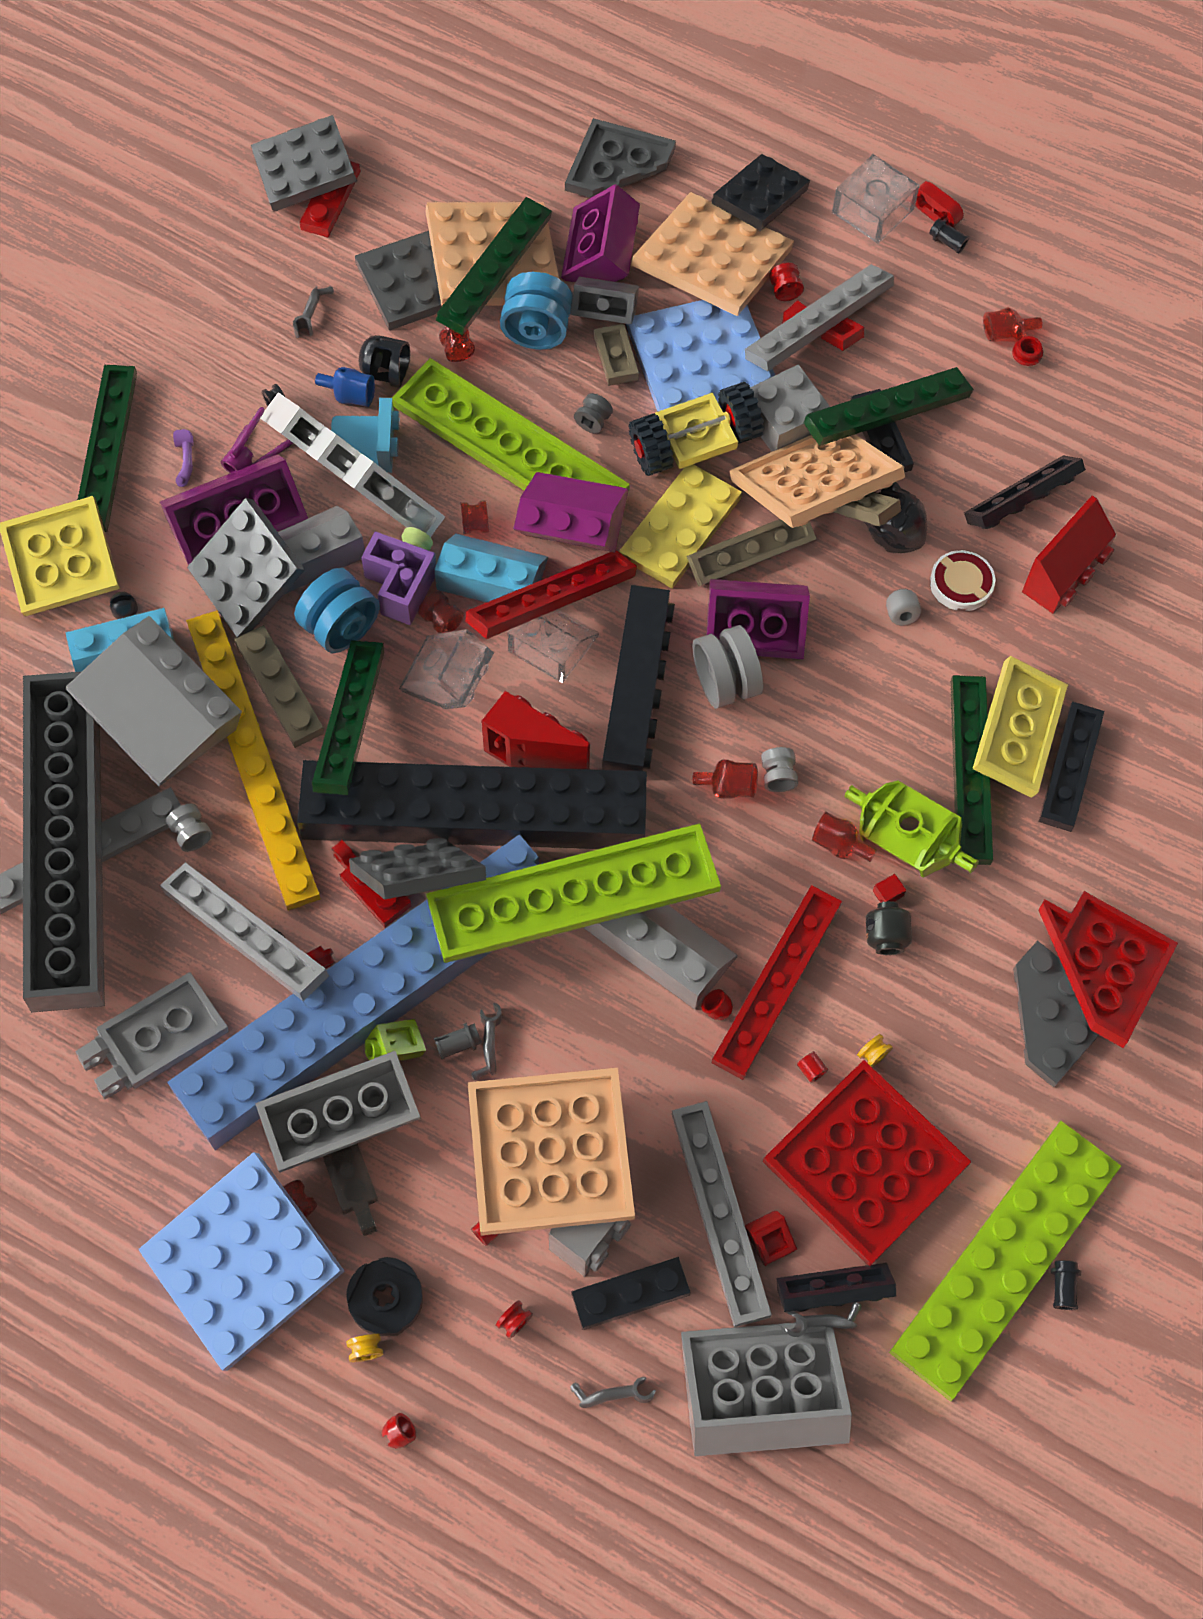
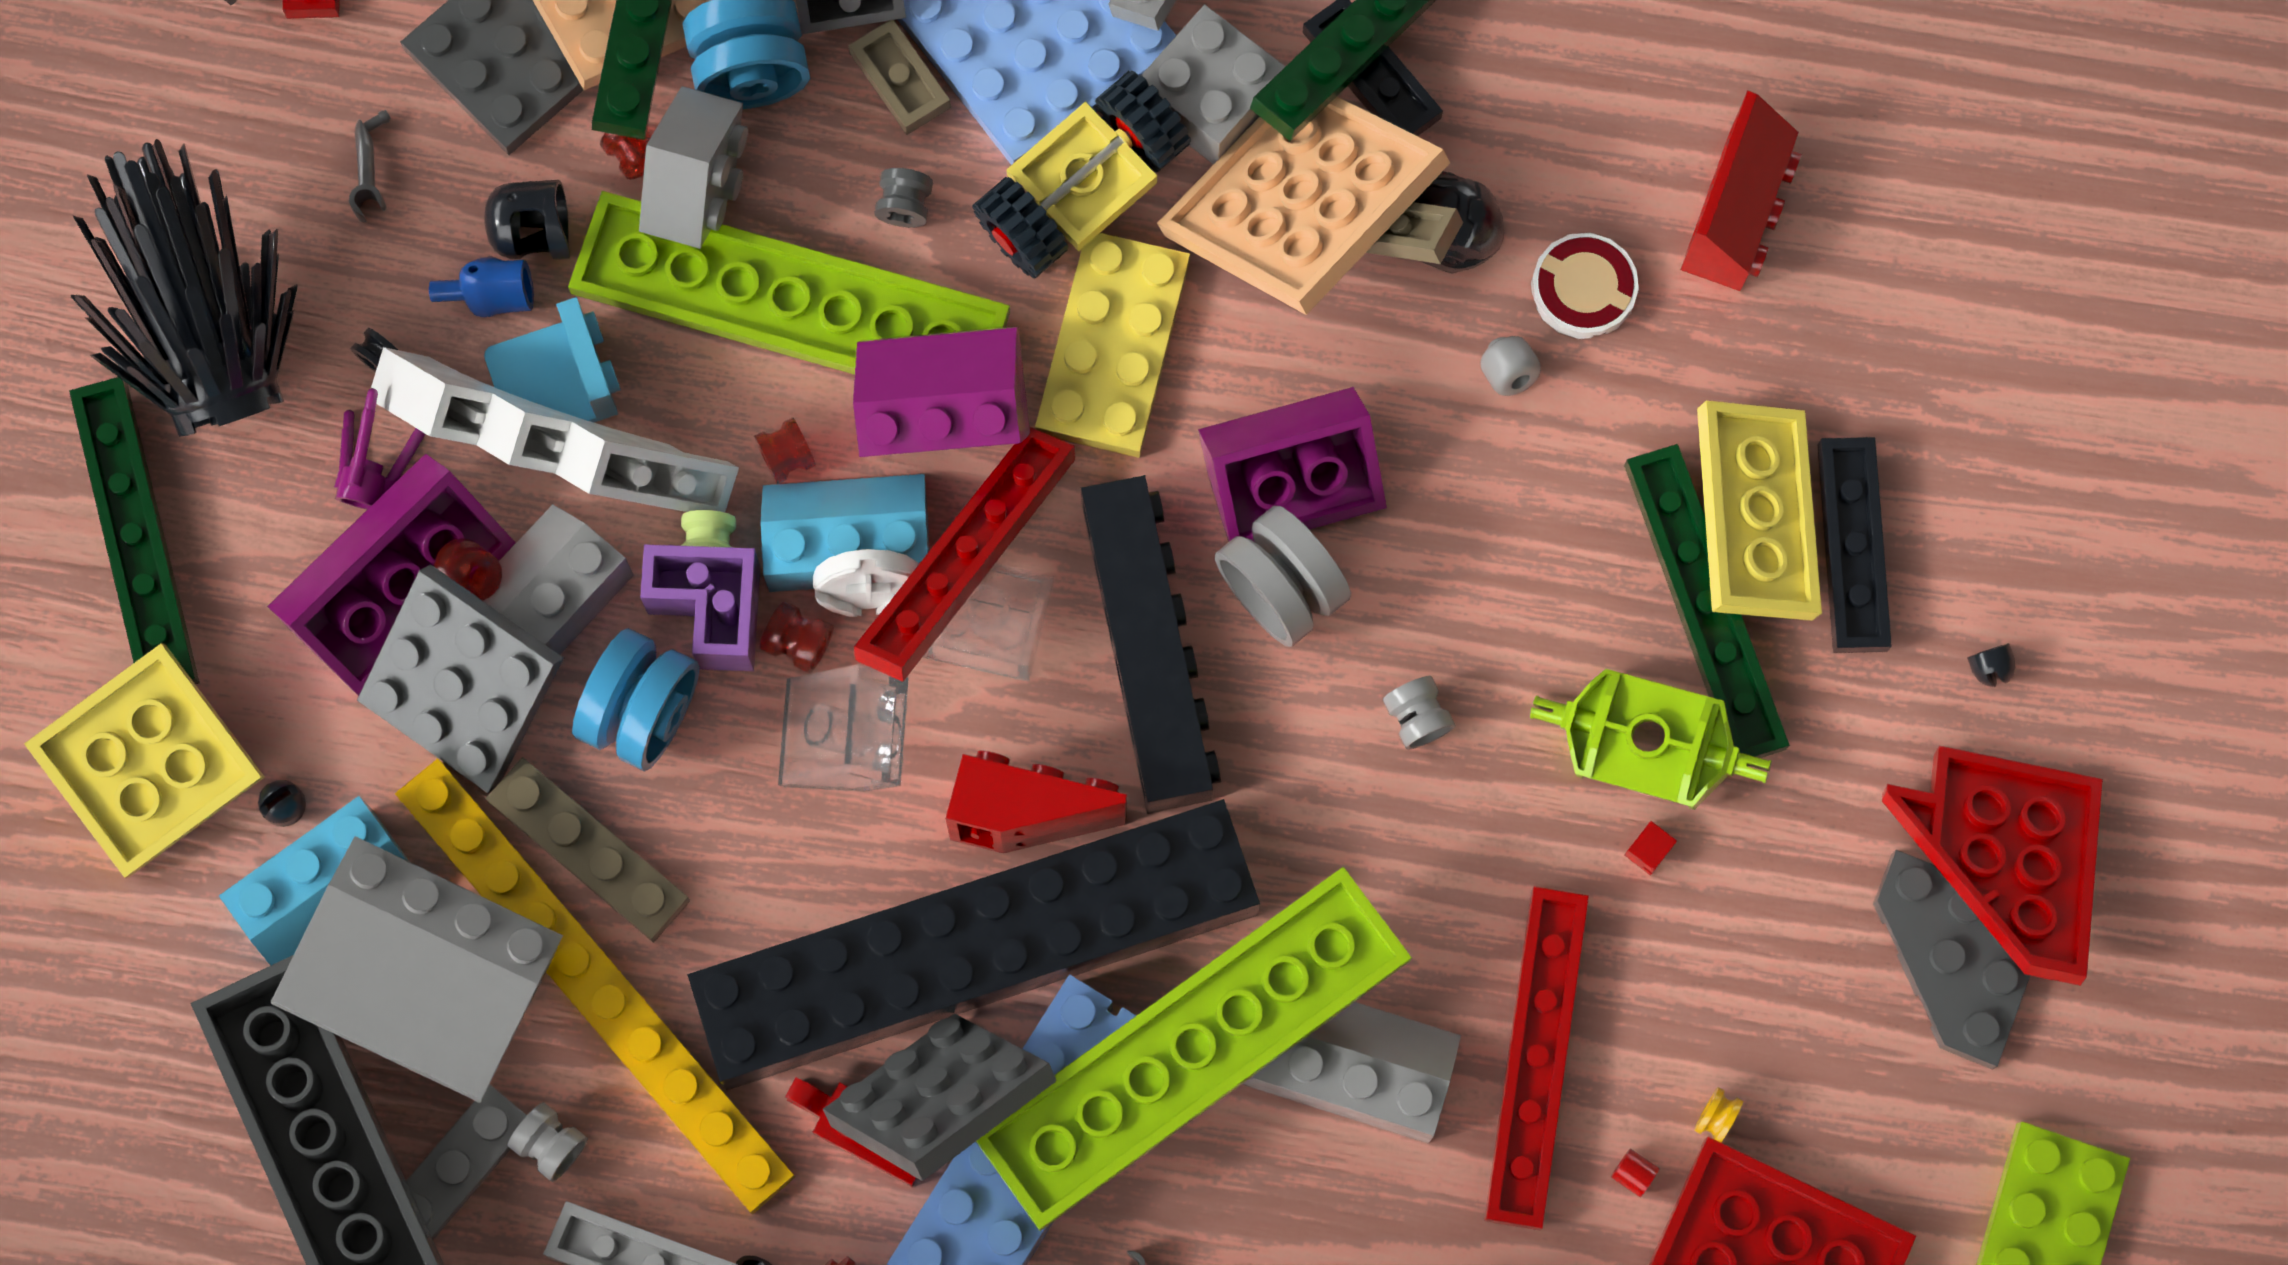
camera: 20 degrees left, 10 degrees up
(183, 347) = (196, 316): none -> black plant
(184, 439) = (256, 473): medium lavender piece -> none
(270, 510) = (457, 561): none -> clear red wheel
(348, 718) = (730, 878): dark green plate -> none
(481, 354) = (692, 167): none -> light grey brick
(484, 585) = (861, 580): none -> white tile
(717, 1005) = (1461, 1128): red hinge -> none
(730, 779) = (1349, 756): clear red piece -> none
(747, 549) = (1228, 362): dark tan plate -> none
(841, 838) = (1552, 792): clear red piece -> none
(888, 929) = (1672, 913): pearl dark grey head -> none
(1032, 487) = (1630, 98): black plate -> none
(1133, 856) = (1997, 659): none -> black hinge

